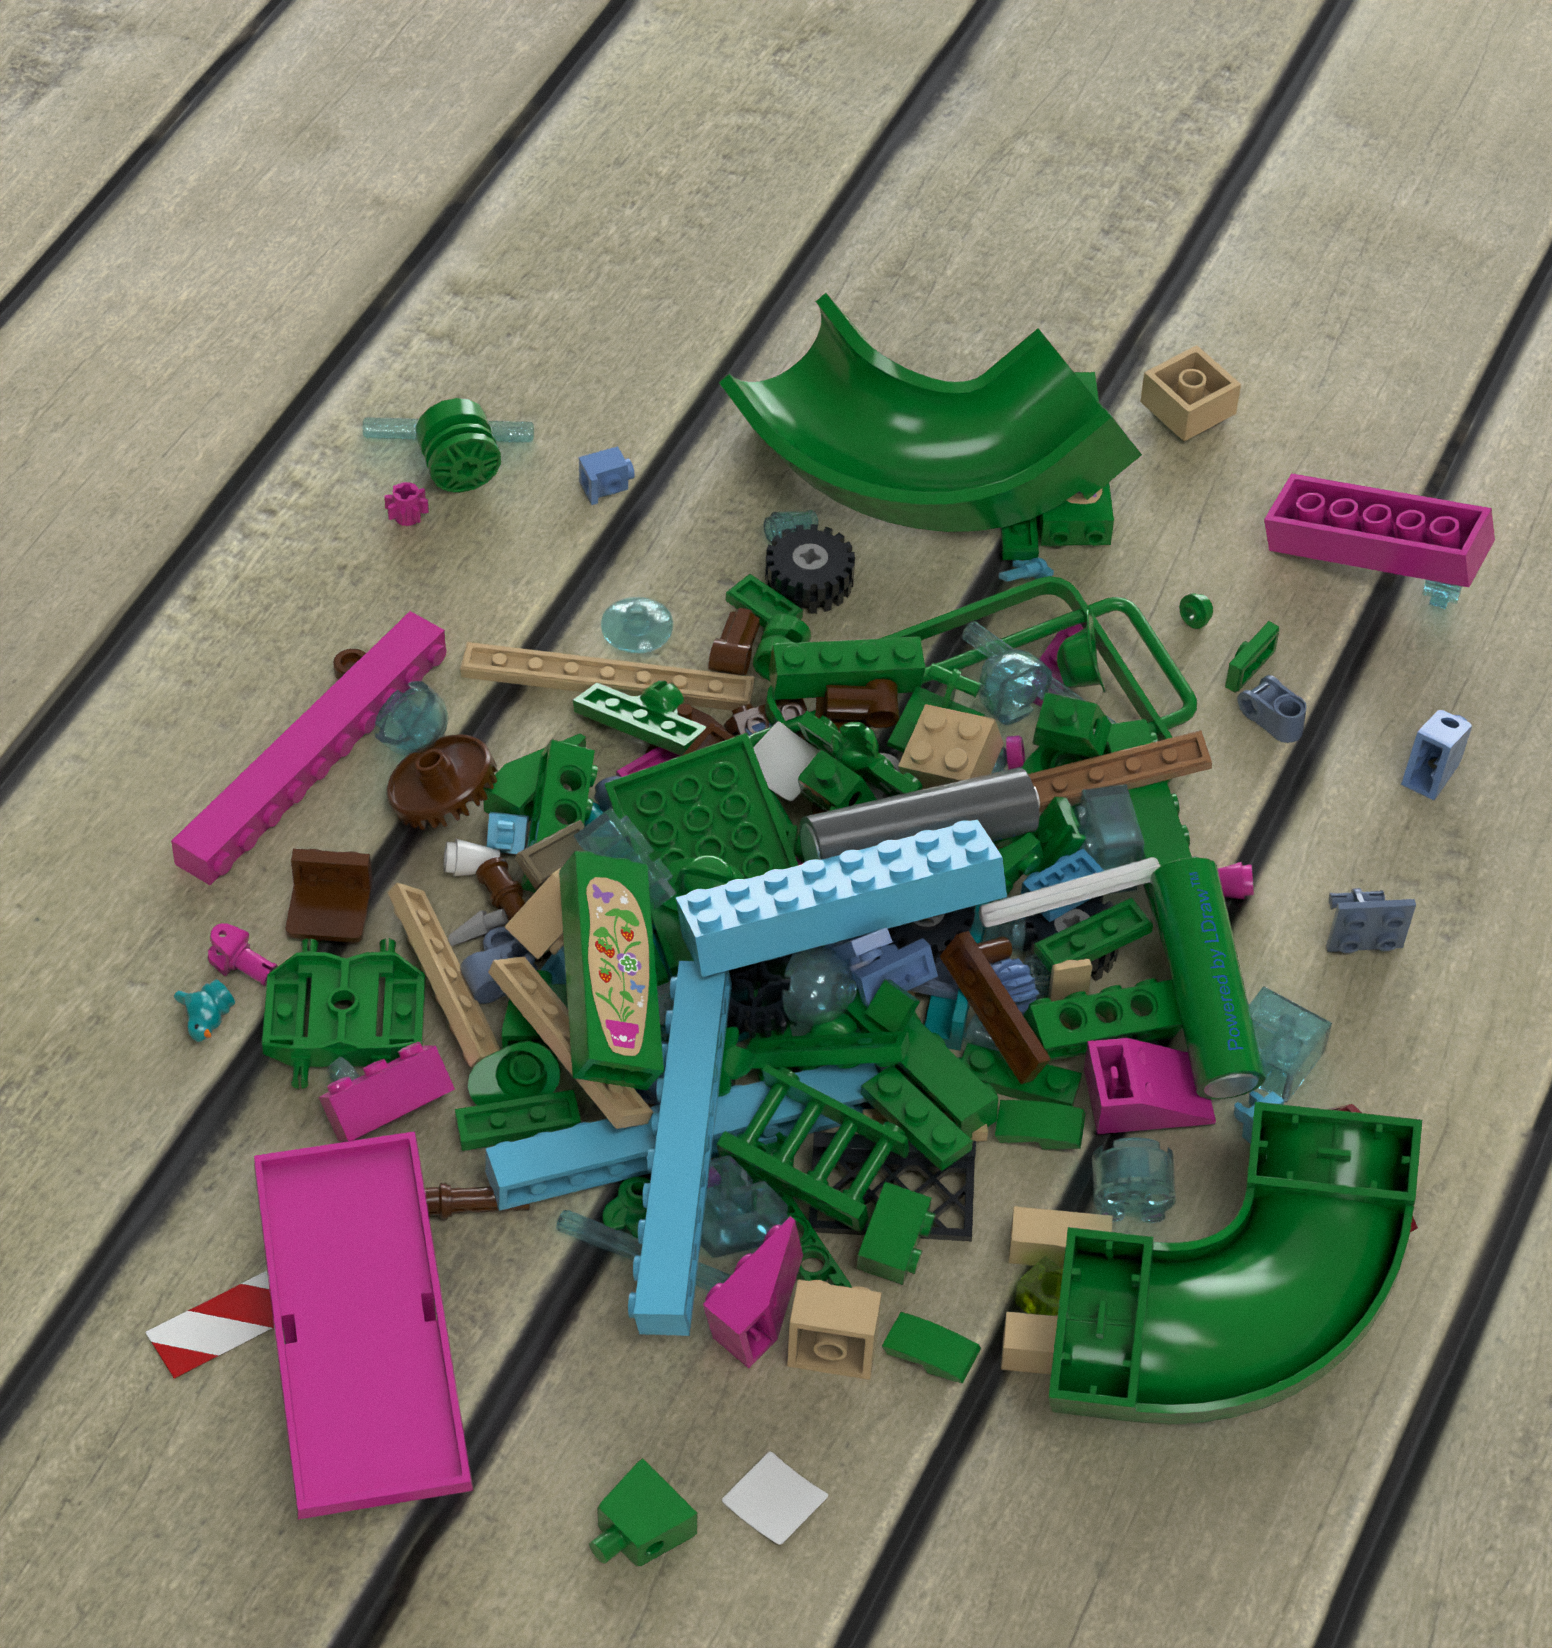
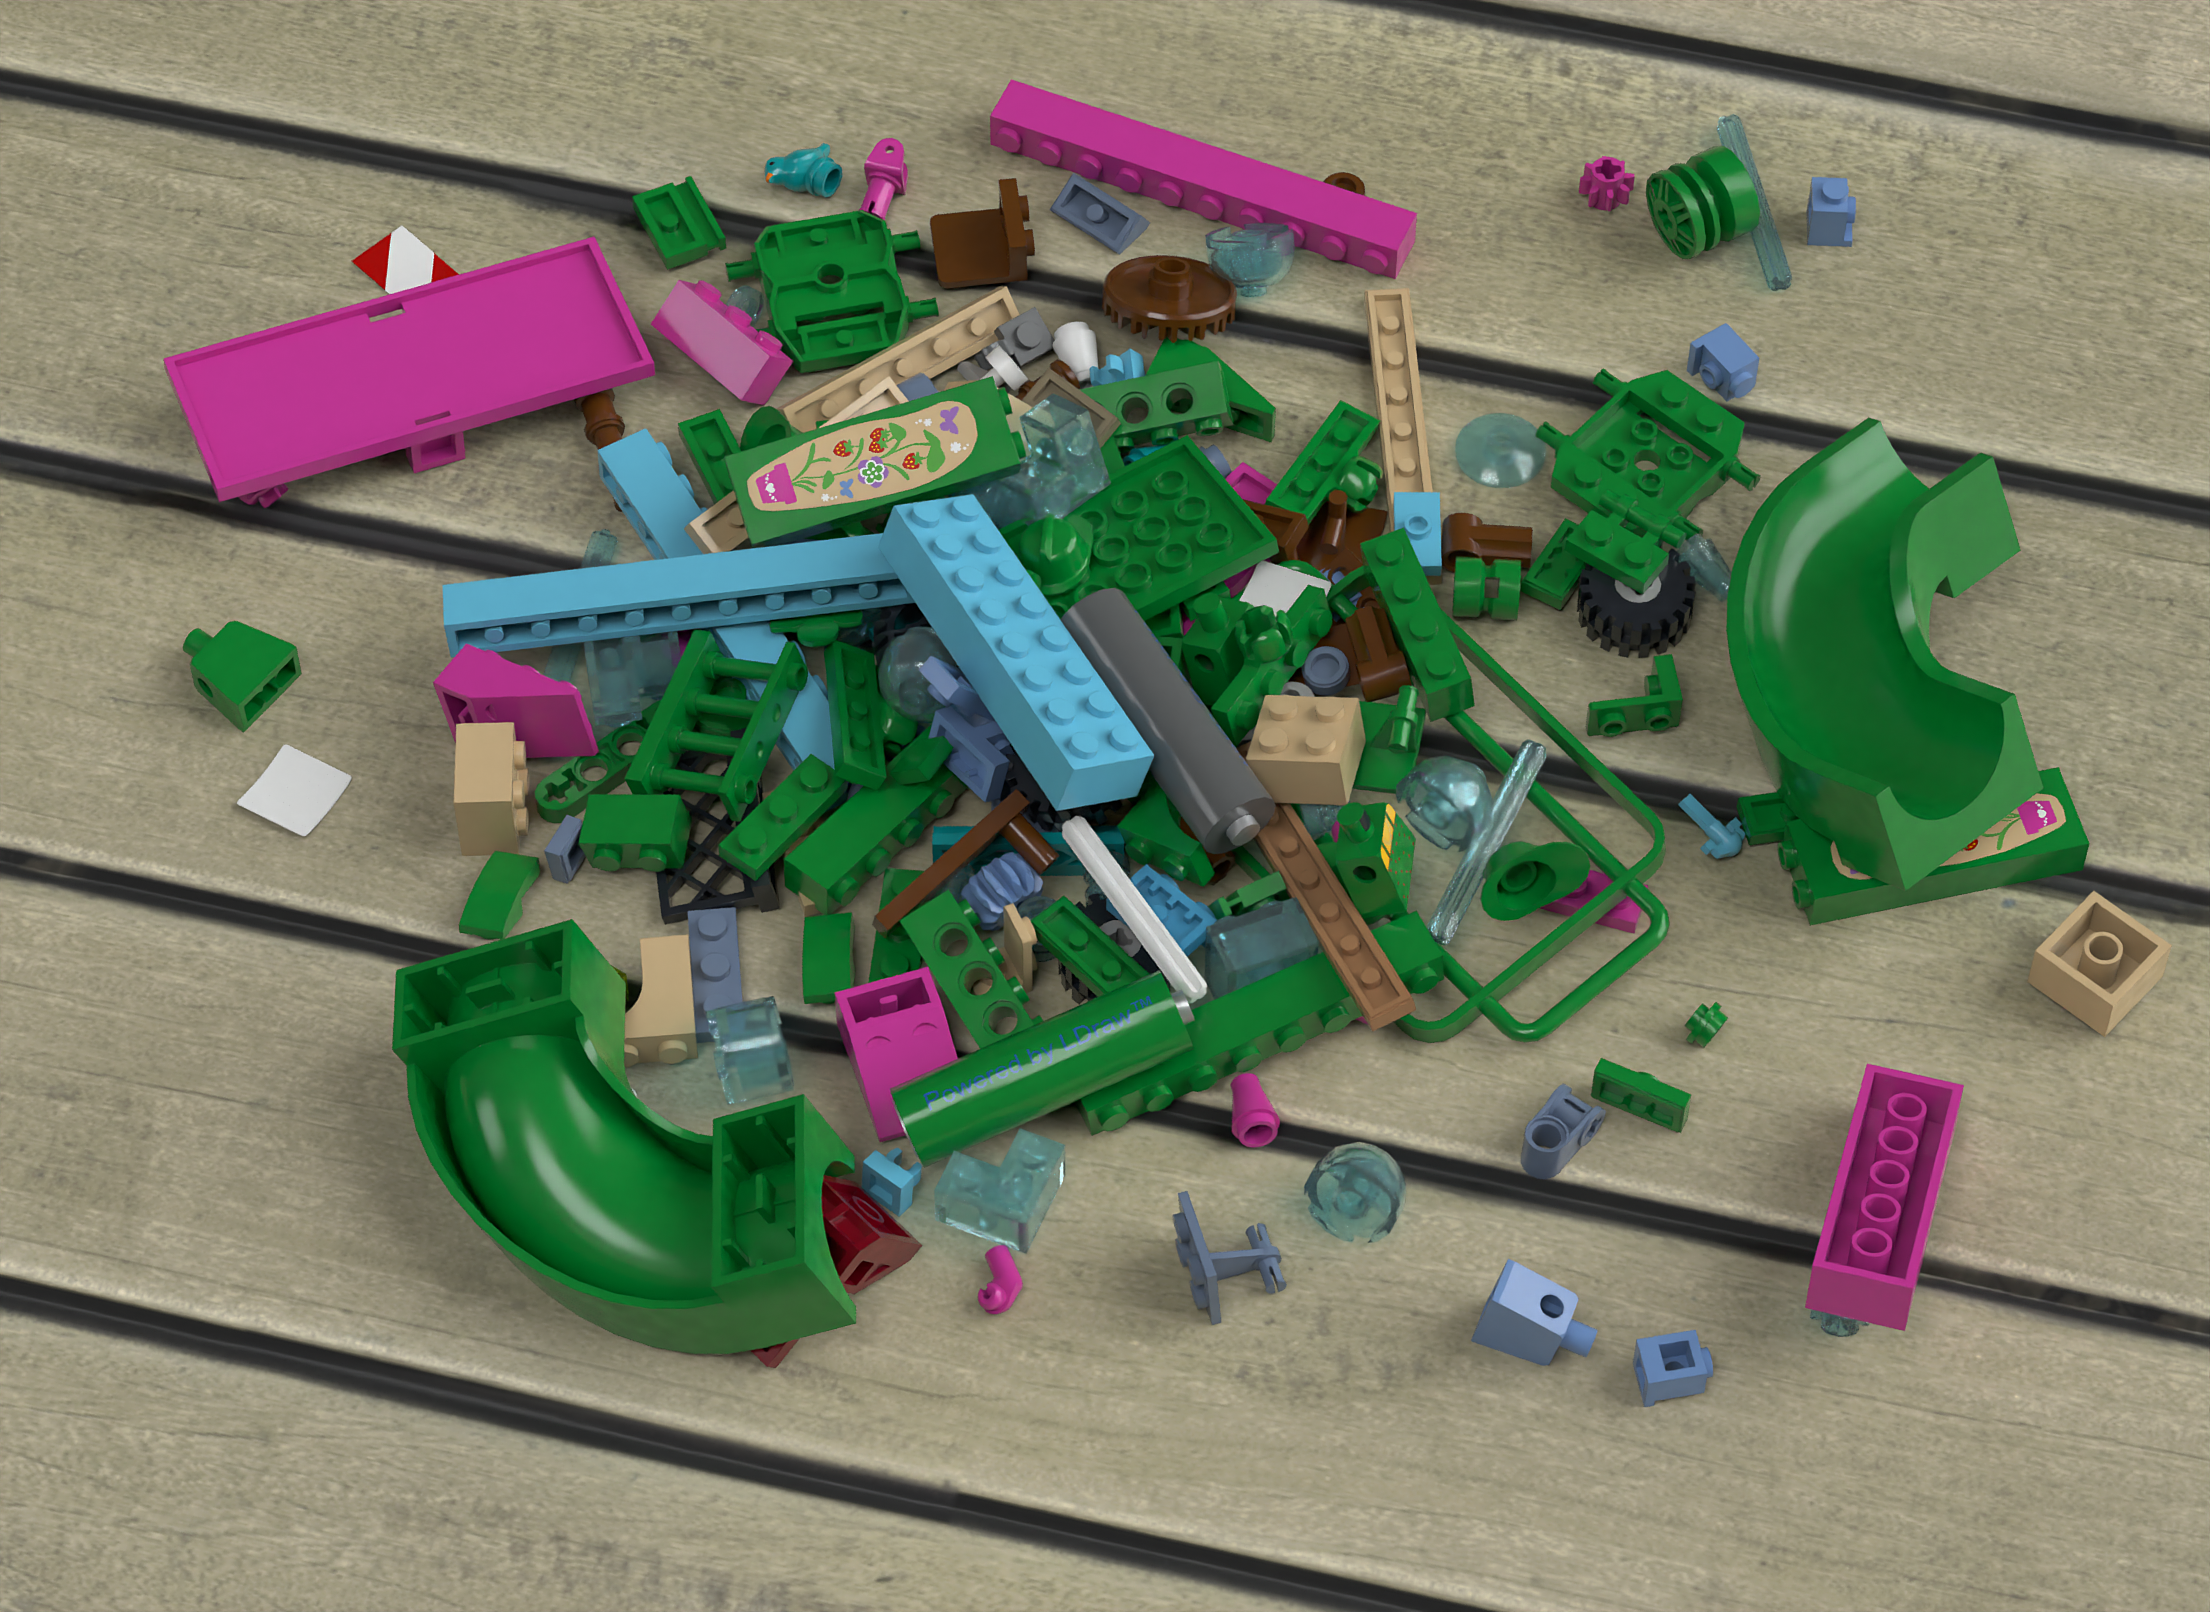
camera: 80 degrees right, 5 degrees up
(228, 1111) = (678, 222): none -> green plate
(319, 822) = (1098, 214): none -> sand blue slope
(443, 893) = (1021, 338): none -> dark grey plate
(482, 377) = (1830, 212): none -> medium blue brick
(484, 900) = (1004, 369): none -> white tile
(715, 538) = (1616, 438): none -> green piece
(718, 678) = (1421, 520): none -> medium azure plate
(781, 558) = (1620, 552): none -> green plate
(895, 1289) = (564, 851): none -> sand blue tile
(905, 571) = (1652, 712): none -> green bracket
(995, 1202) = (713, 964): none -> sand blue plate
(1316, 825) = (1356, 1192): none -> clear light blue cylinder
(1358, 1063) = (1006, 1282): none -> dark pink arm
(1482, 687) = (1671, 1366): none -> medium blue brick

